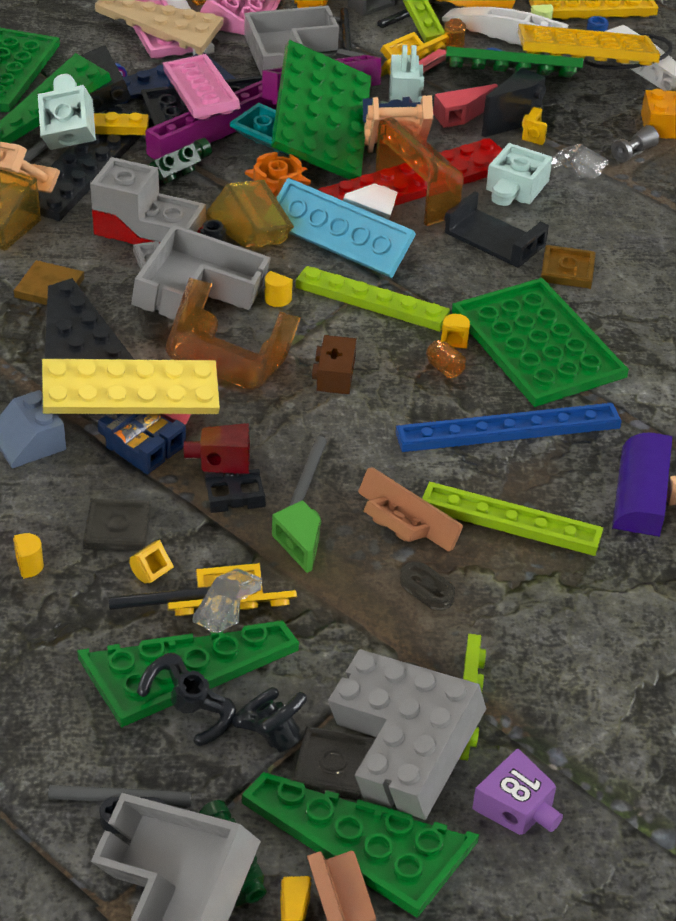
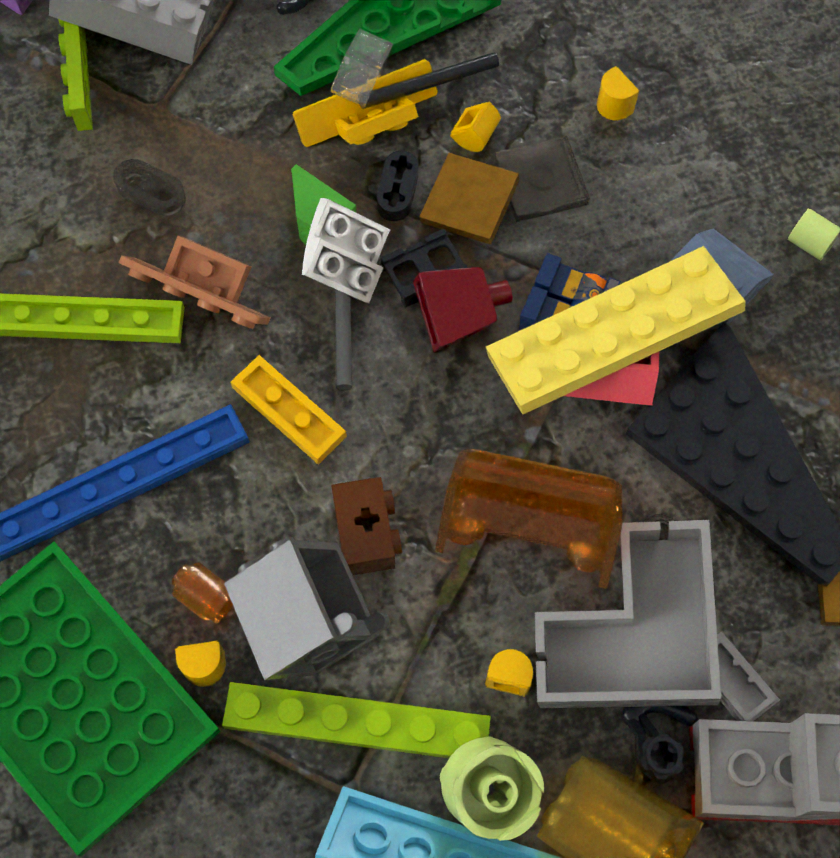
camera: 165 degrees right, 25 degrees up
(181, 517) = (469, 198): none -> pearl gold tile
(225, 541) = (405, 187): none -> black beam
(291, 491) = (344, 250): none -> white slope
(310, 243) = (516, 785): none -> yellowish green brick
(364, 432) = (288, 409): none -> yellow plate
(388, 316) = (301, 608): none -> container

